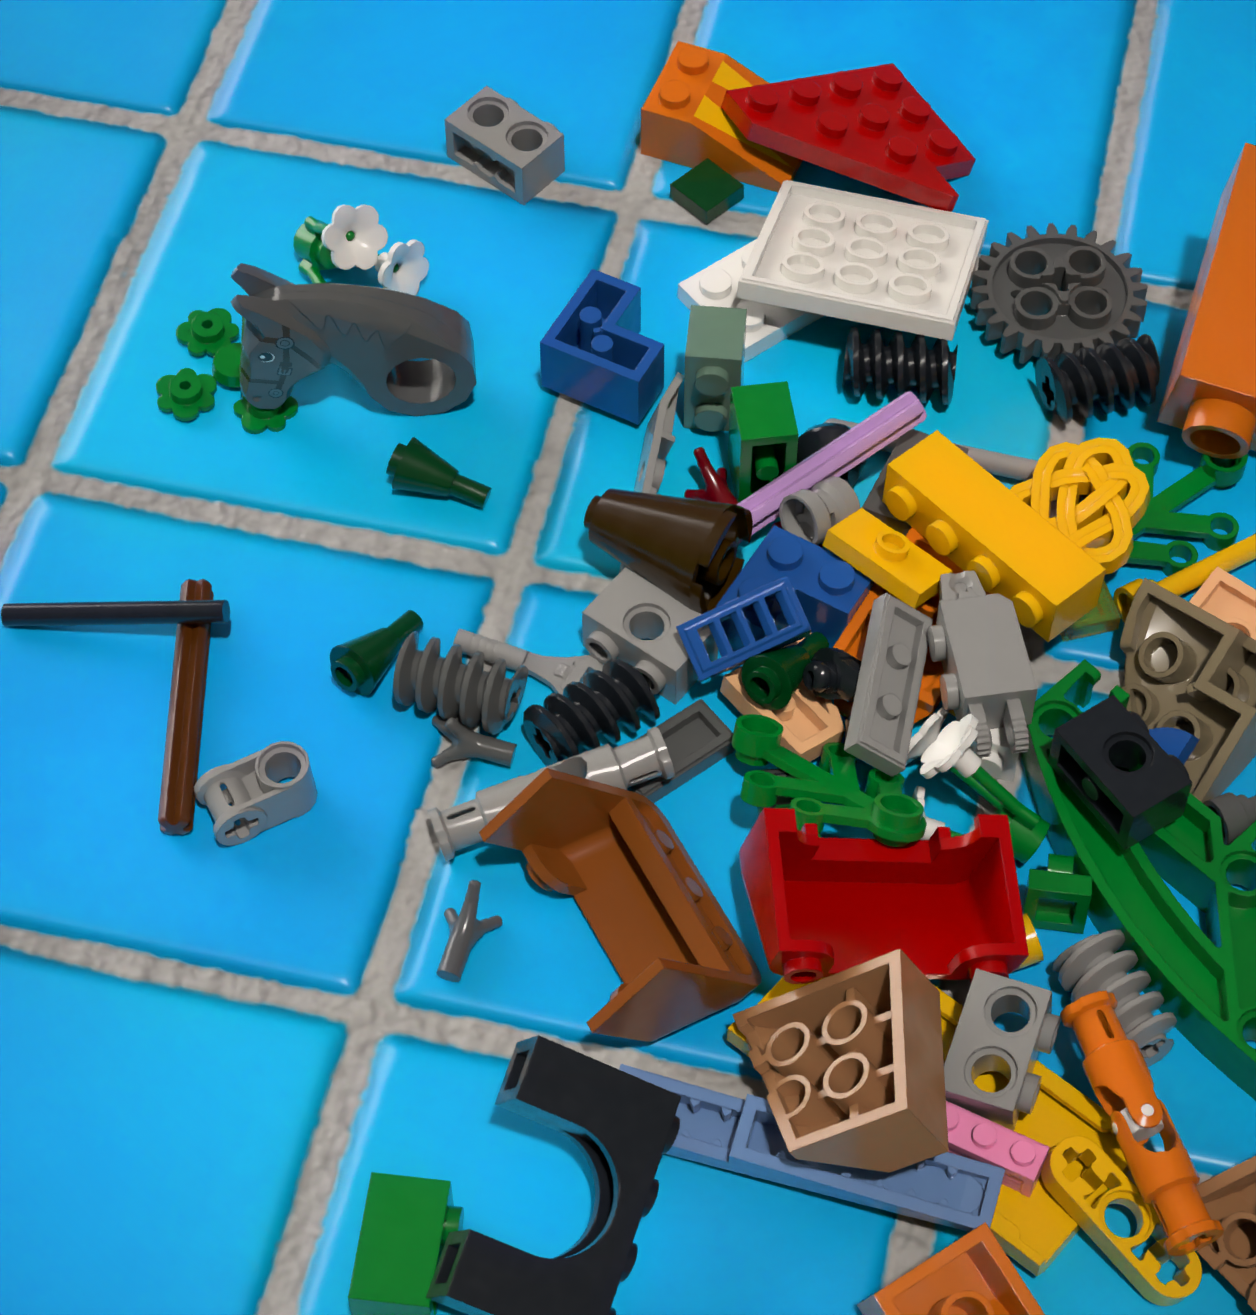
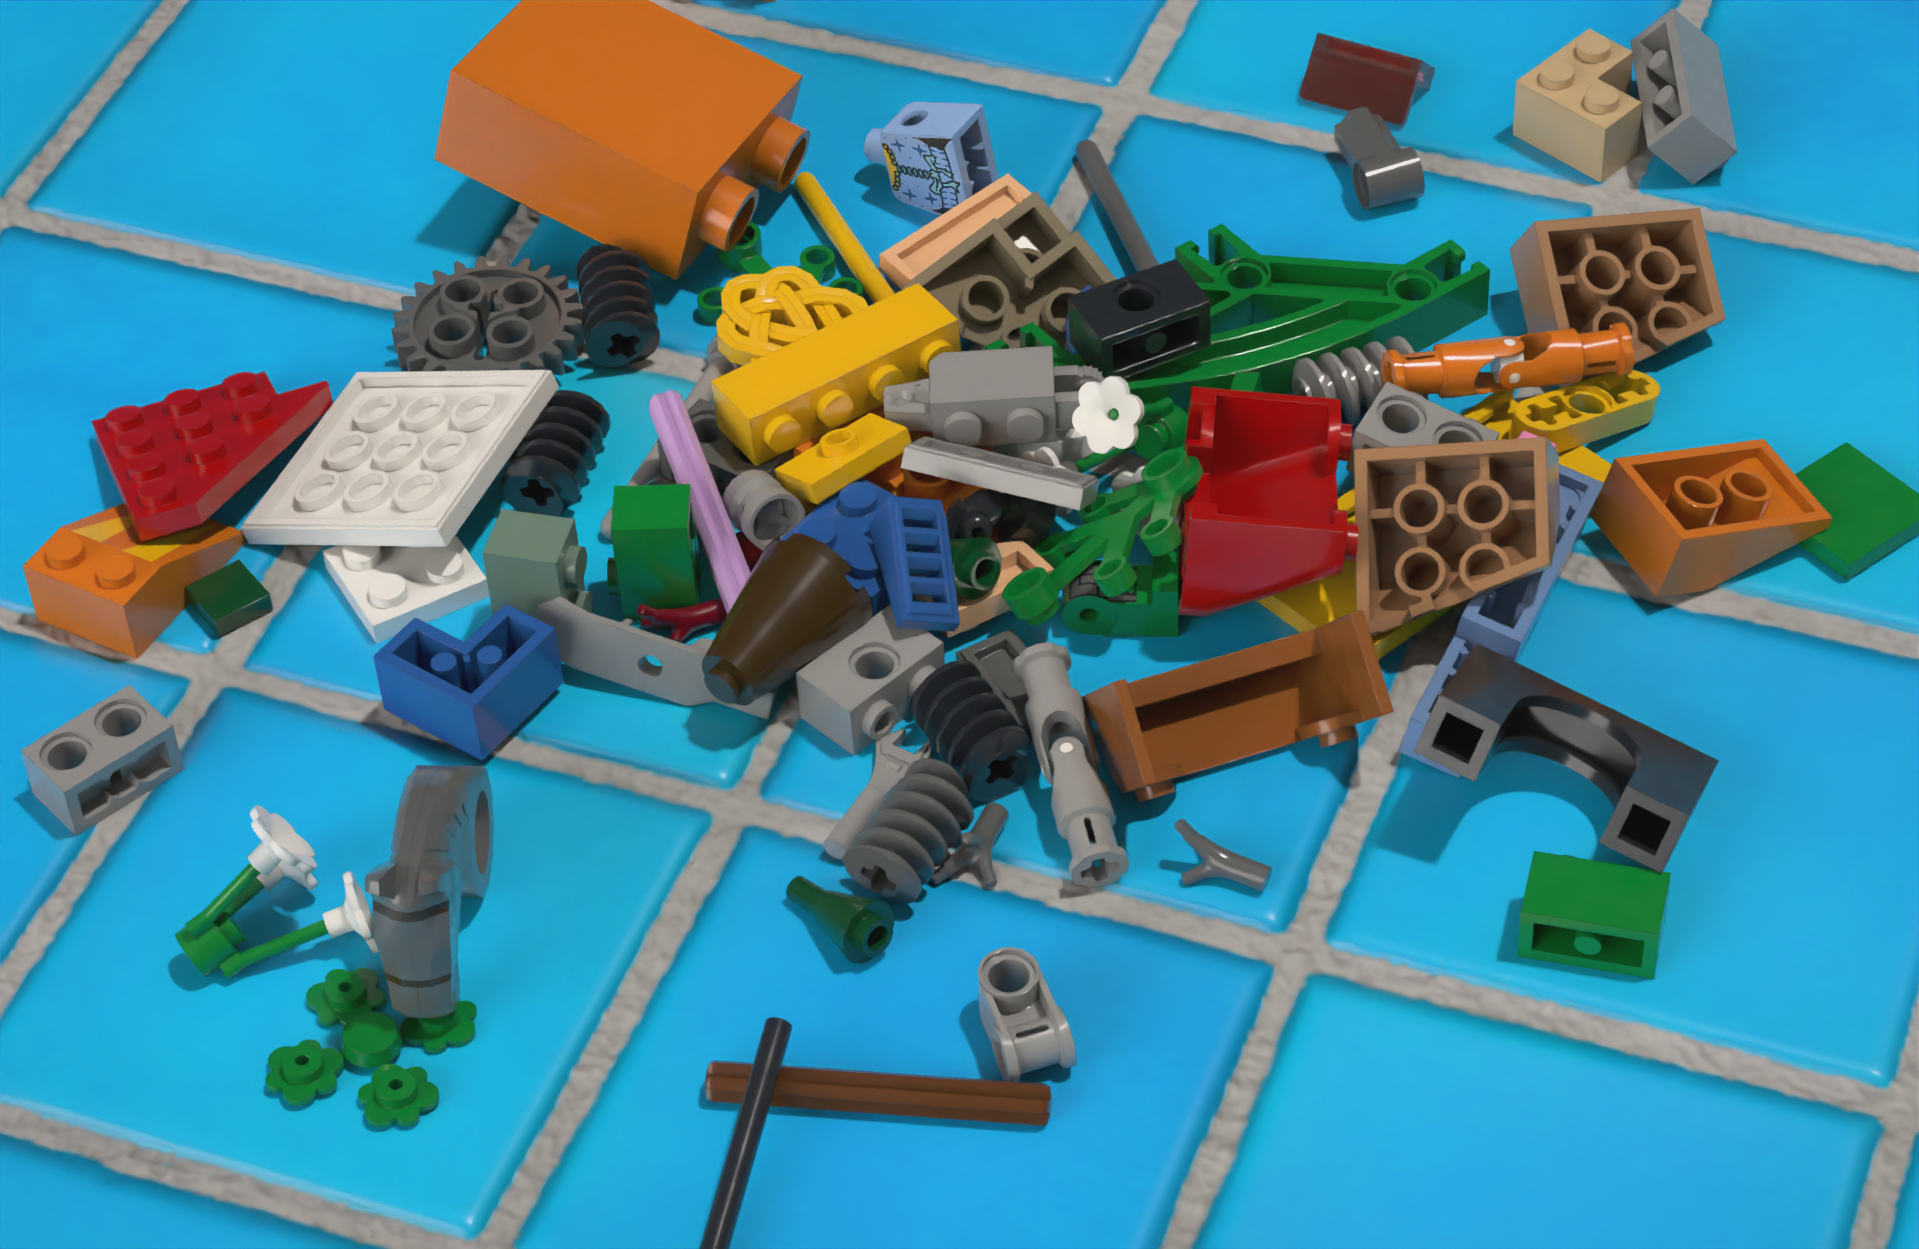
camera: 80 degrees left, 10 degrees down
(423, 471) = (589, 864): dark green cone -> none

